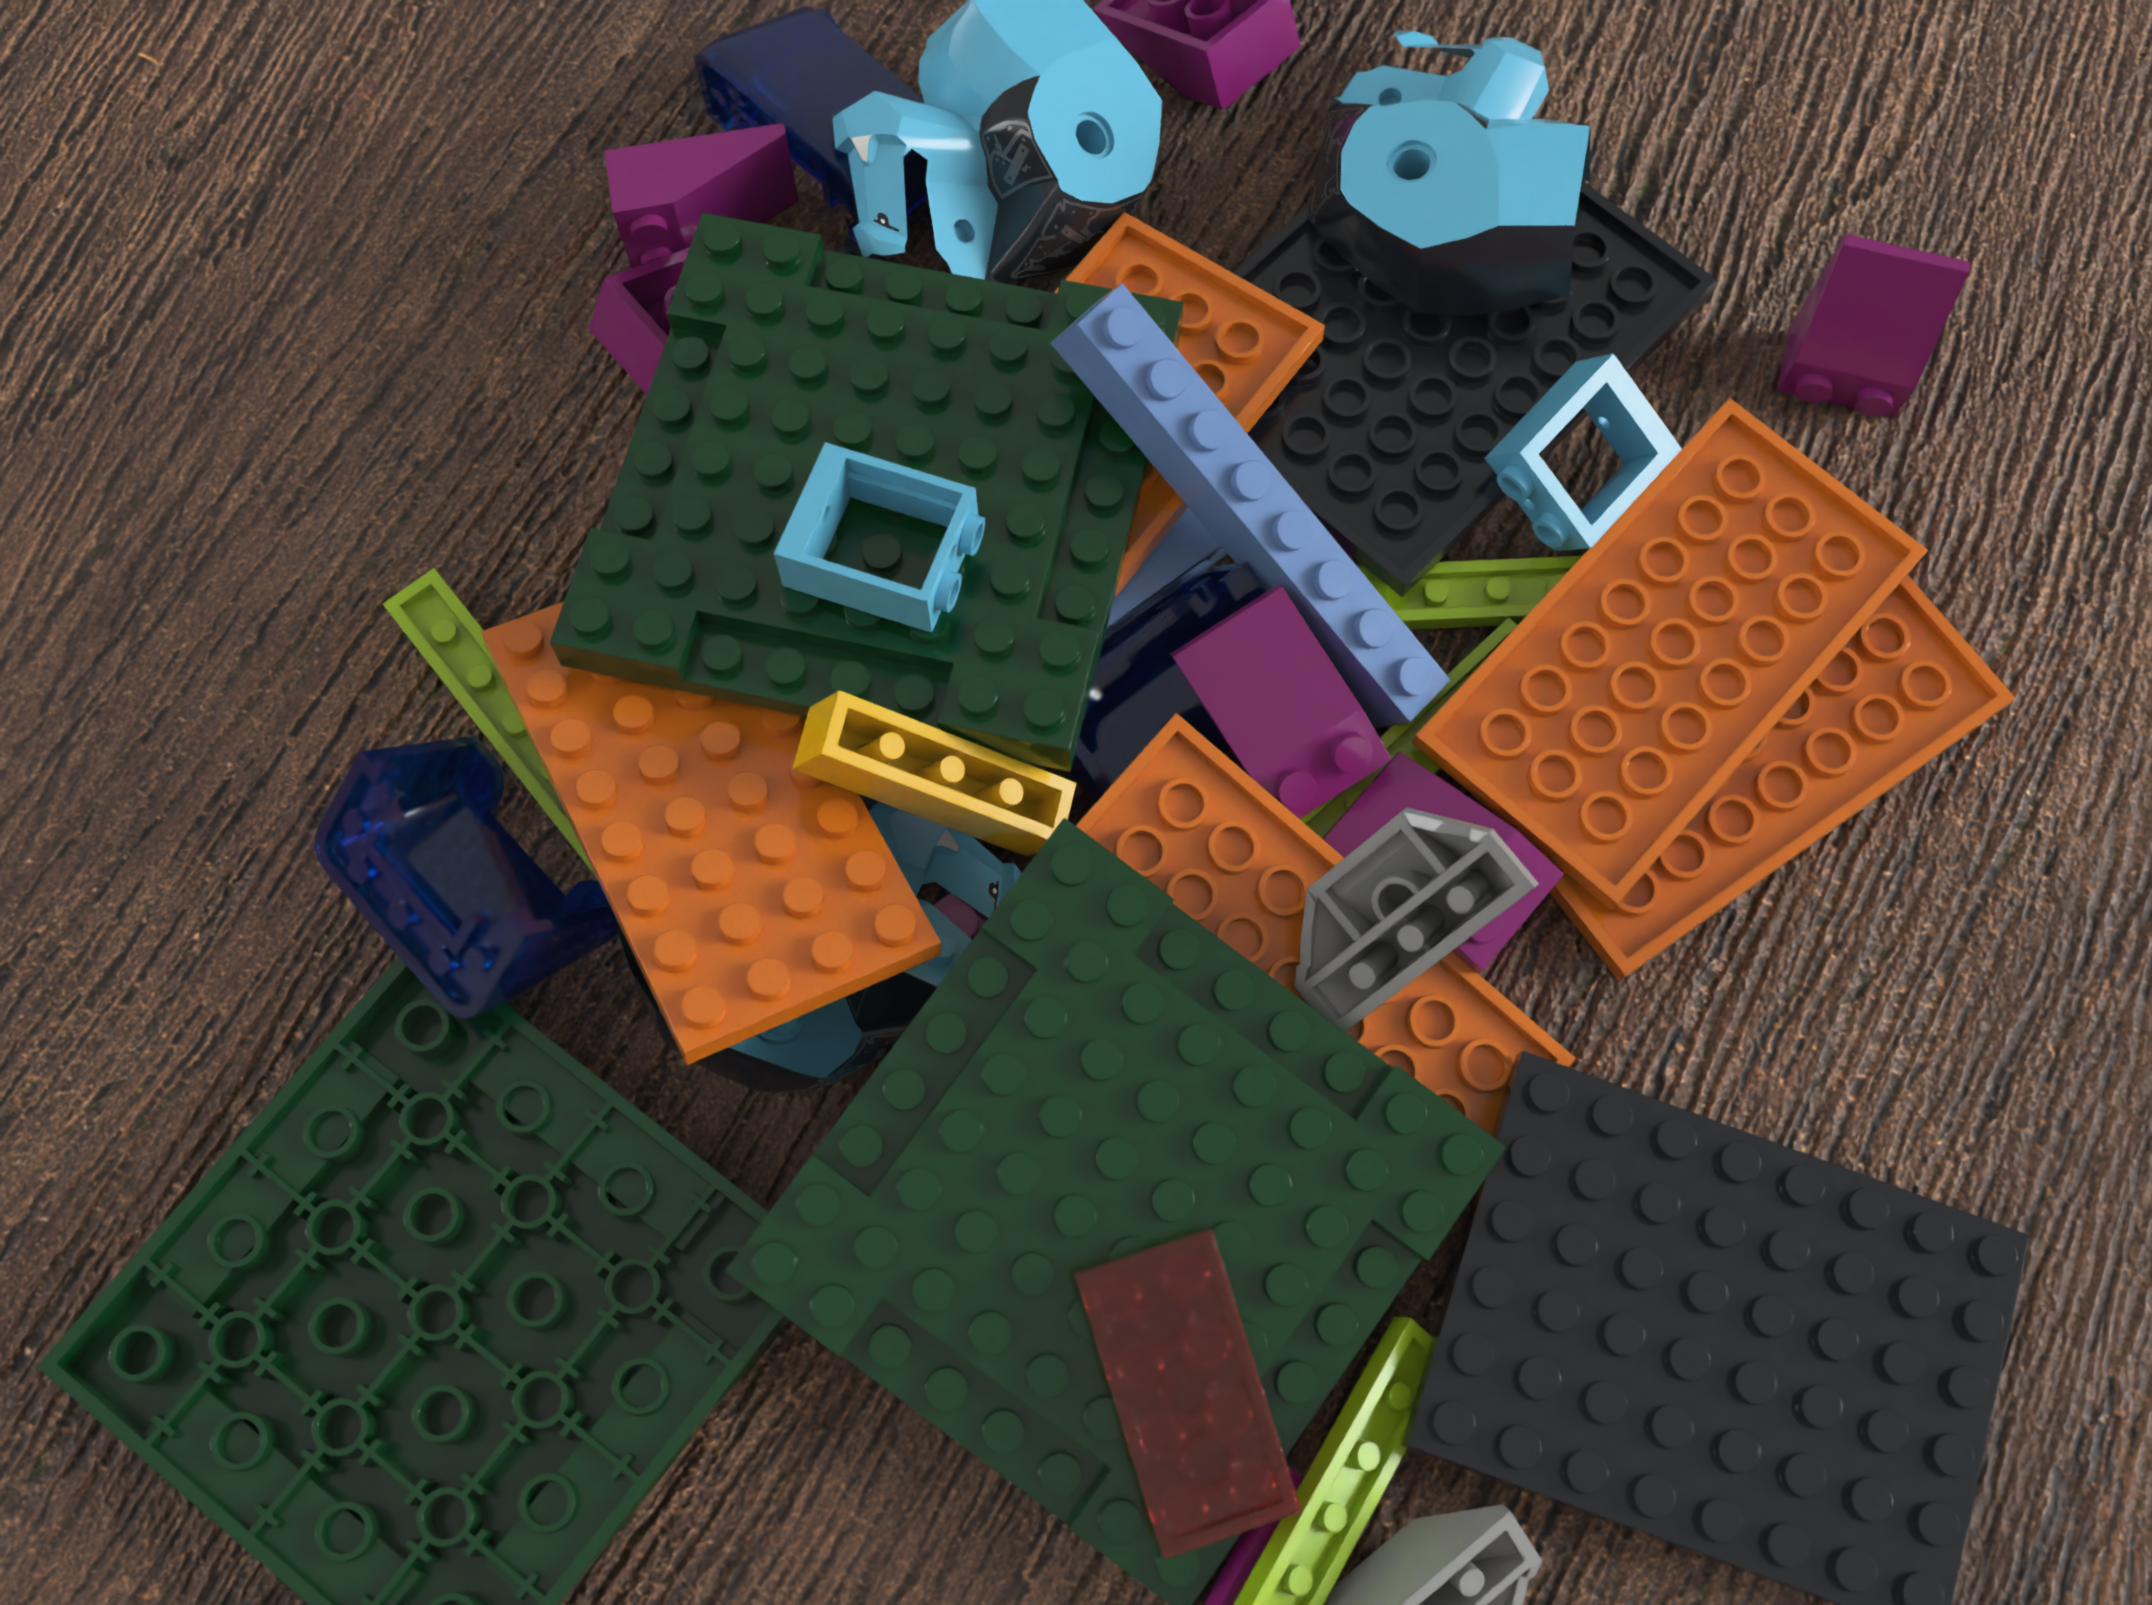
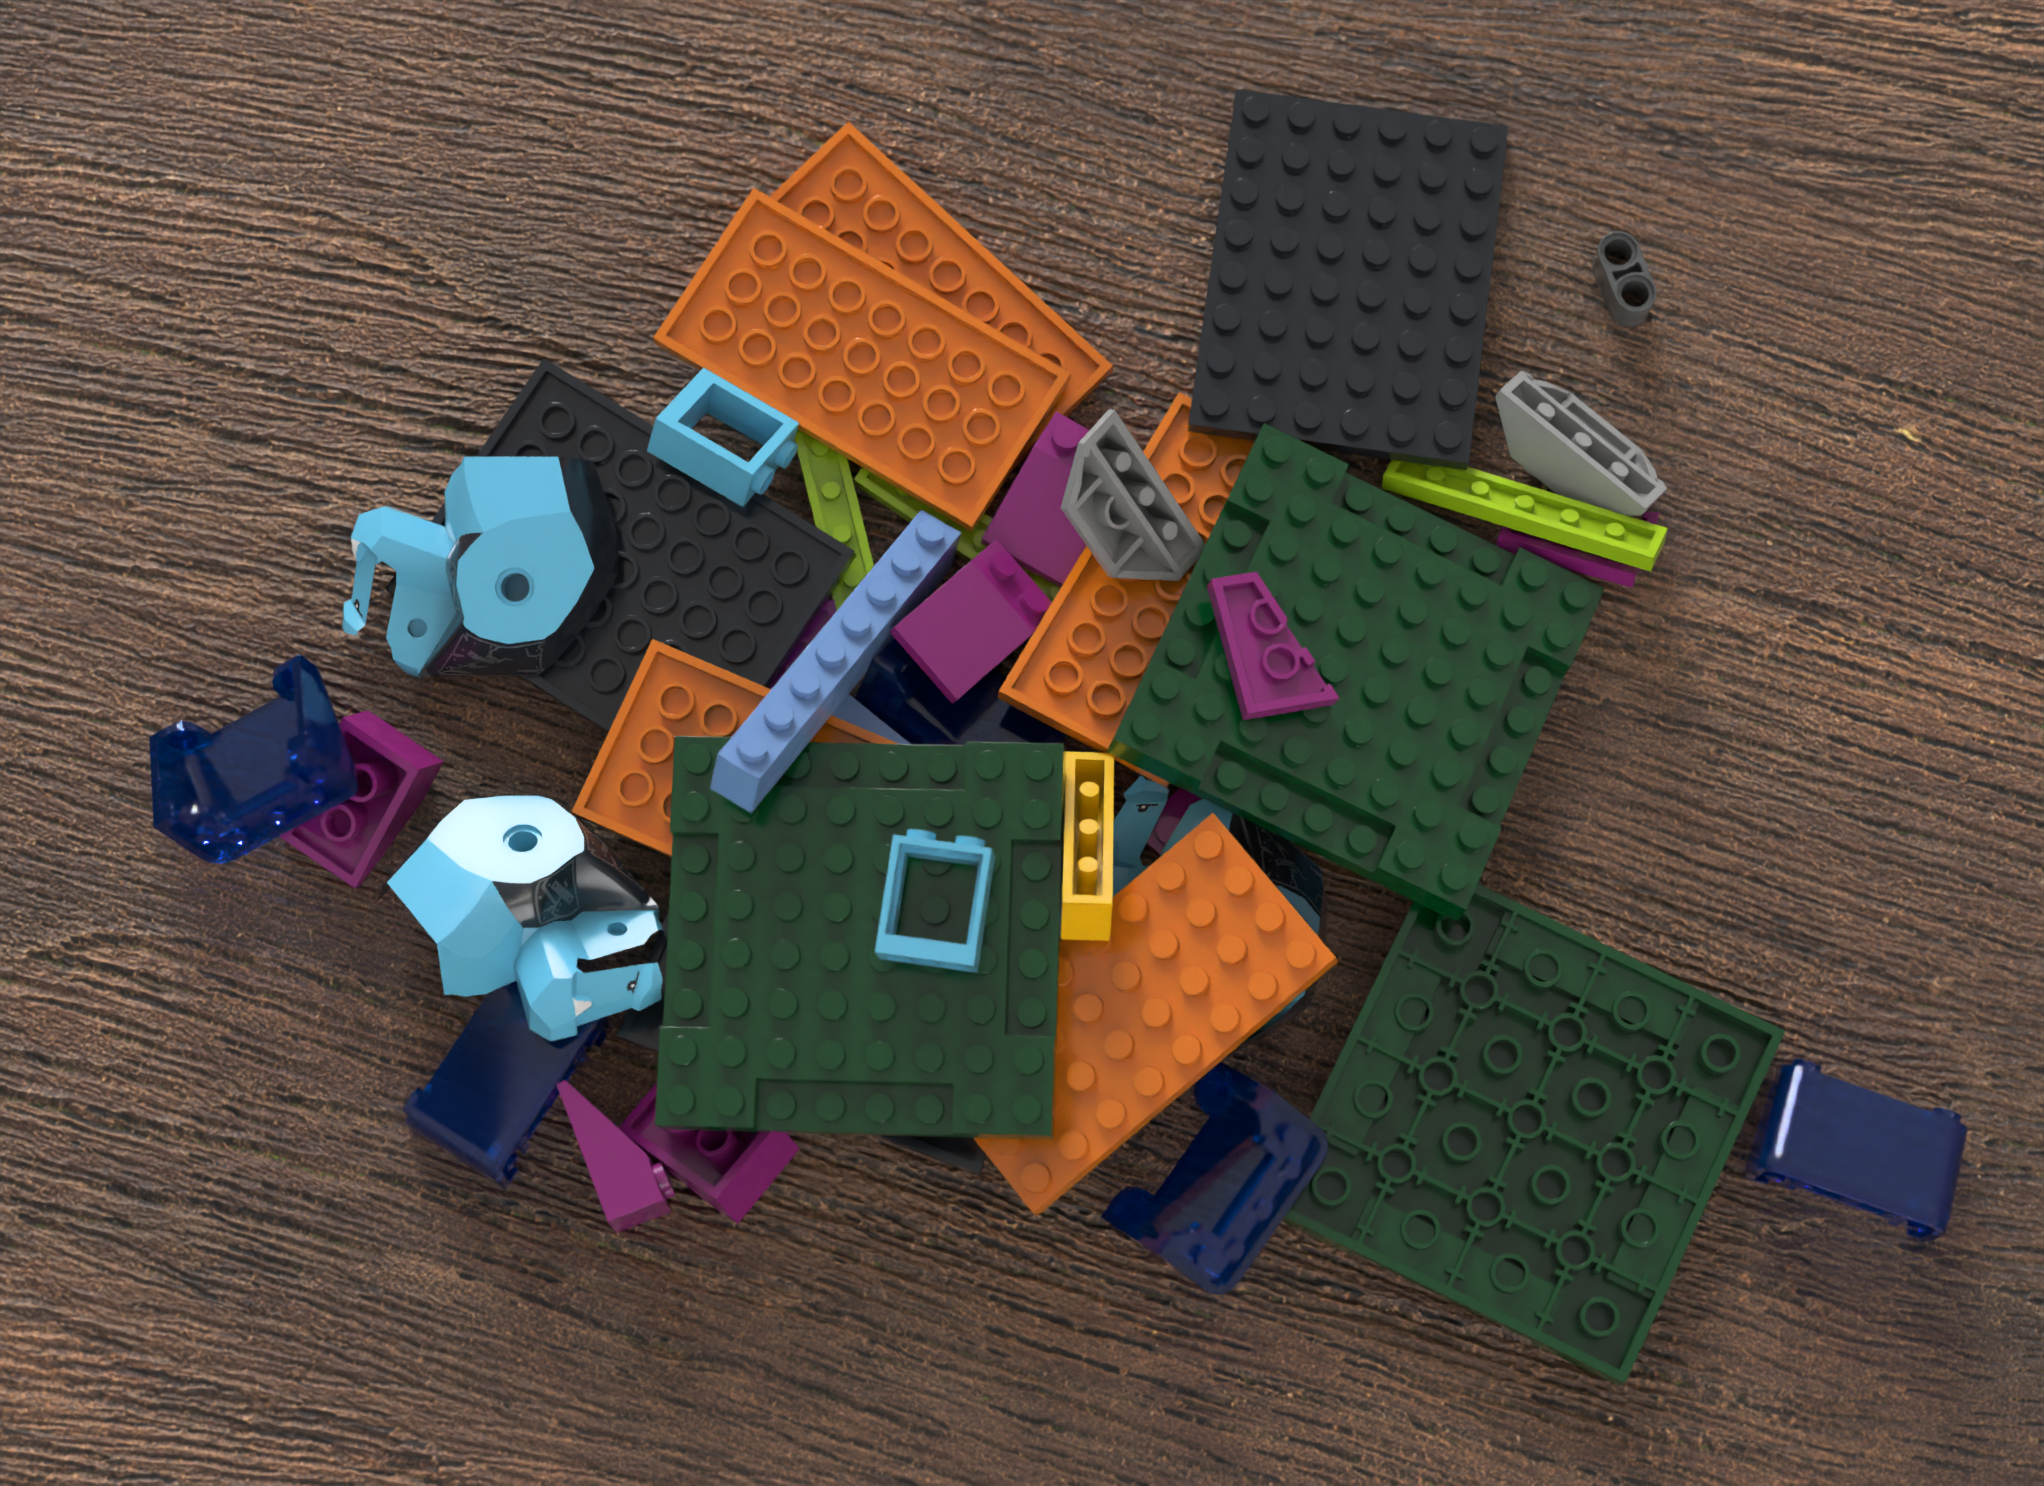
camera: 100 degrees left, 5 degrees up
(457, 653) = (1048, 1236): lime plate -> none
(1153, 1052) = (1262, 654): none -> magenta wing
(1187, 1393) = (1473, 599): clear red plate -> none
(1870, 326) = (581, 245): magenta slope -> none

